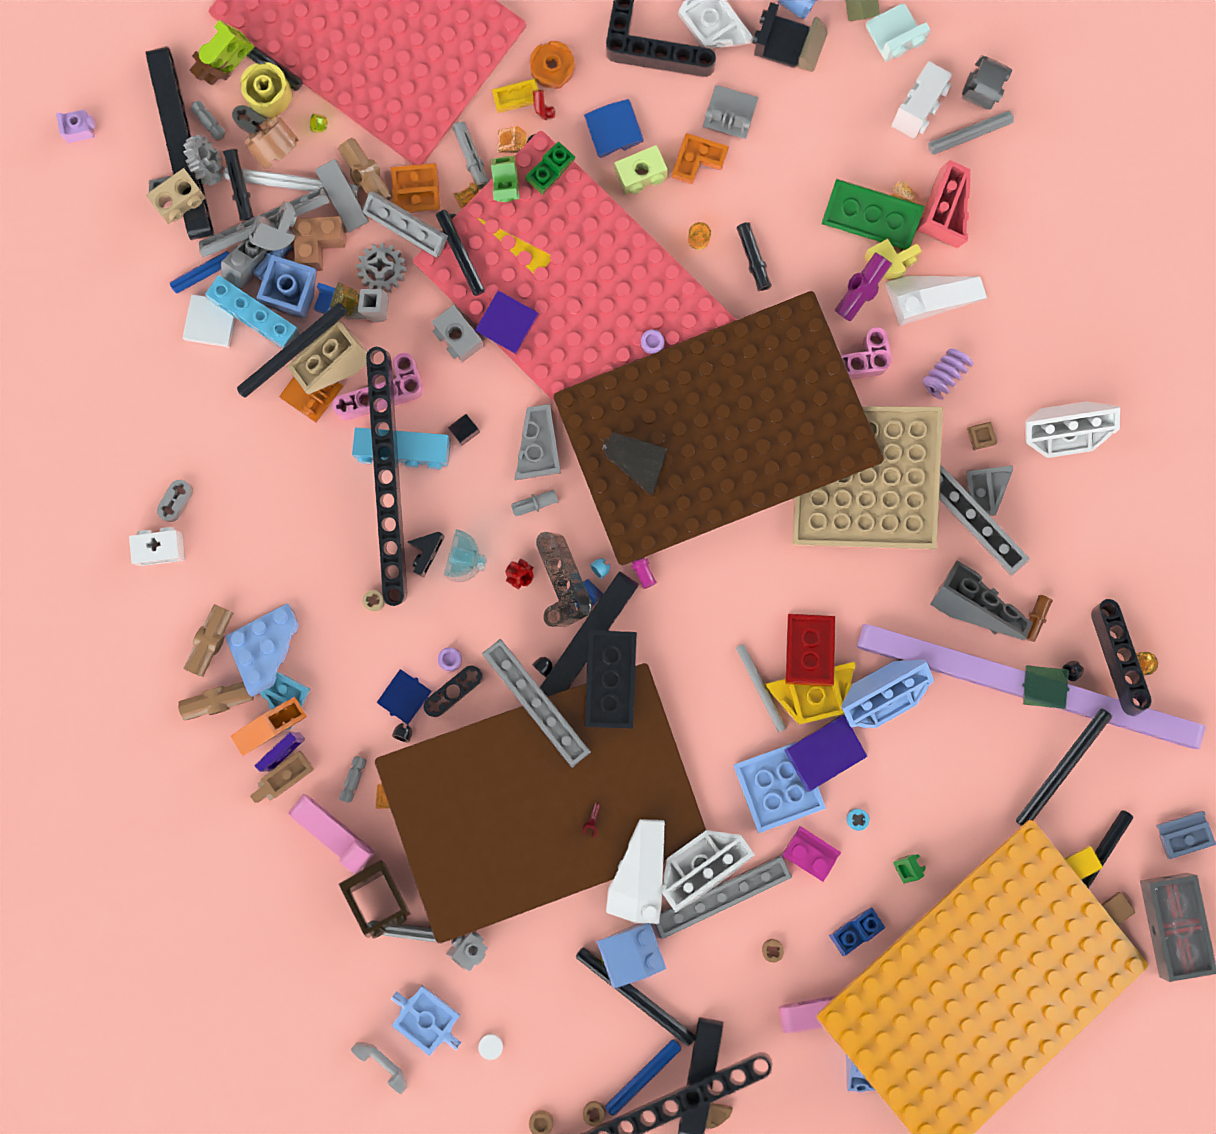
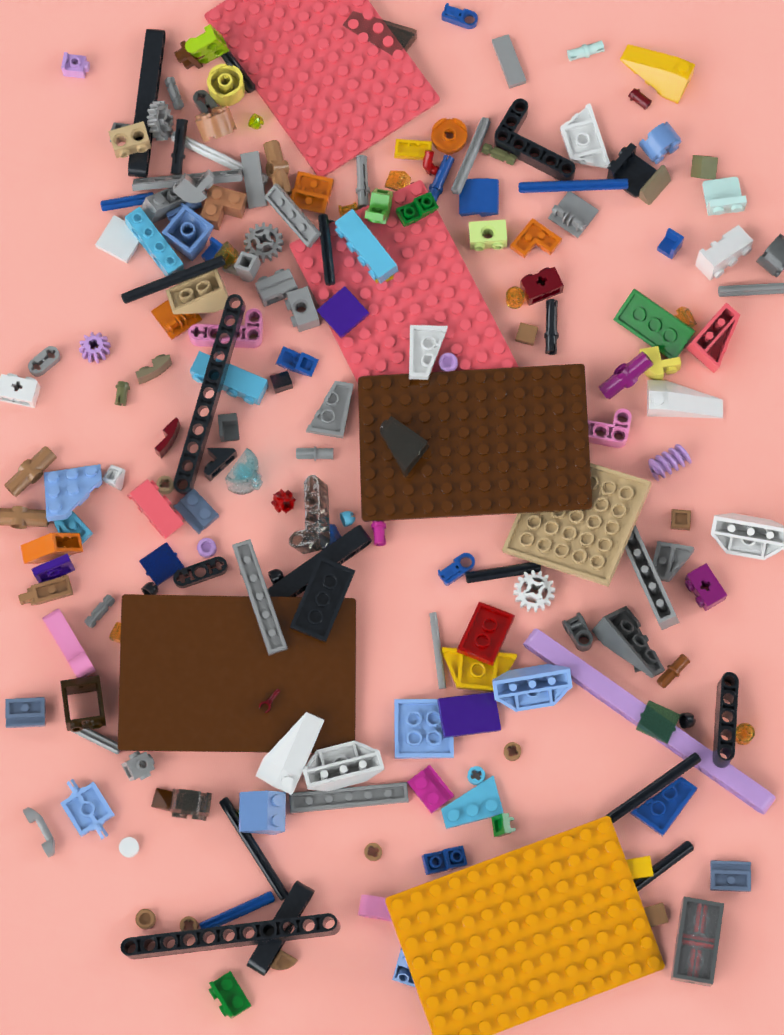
camera: 20 degrees right, 10 degrees down
(222, 472) = (97, 353): none -> lavender gear
(281, 508) = (121, 393): none -> olive pin
(310, 611) = (114, 477): none -> white slope
(310, 931) = (25, 712): none -> sand blue plate
(314, 458) = (160, 365): none -> dark tan slope
(357, 536) = (170, 432): none -> dark red slope
(373, 634) = (156, 508): none -> coral wedge
(415, 317) = (275, 287): none -> light grey brick
(421, 619) = (196, 511): none -> sand blue plate
(422, 506) = (228, 427): none -> dark grey panel
(473, 399) = (297, 362): none -> blue slope
(506, 233) = (366, 246): none -> medium azure brick
(509, 975) = (162, 799): none -> reddish brown slope
(545, 975) = (190, 803): none -> clear smoke brick
(560, 117) = (436, 187): none -> blue pin
(586, 80) = (470, 156): none -> light grey axle
(618, 67) = (499, 154): none -> olive axle
(619, 336) = (424, 348): none -> white wing
(719, 77) = (573, 185): none -> blue axle
(720, 222) = (535, 292): none -> dark red brick
(728, 274) = (526, 334): none -> medium nougat tile
(747, 586) = (456, 570): none -> blue piece
(801, 569) = (501, 572): none -> black axle
(855, 587) = (528, 595): none -> white gear
(856, 109) = (671, 243): none -> blue panel
(868, 855) = (475, 805): none -> medium azure wing
(883, 781) = (506, 752): none -> medium nougat bush
(914, 608) = (576, 629): none -> dark grey piece
(1052, 509) = (704, 577): none -> magenta brick
(1086, 781) = (666, 806): none -> blue wing

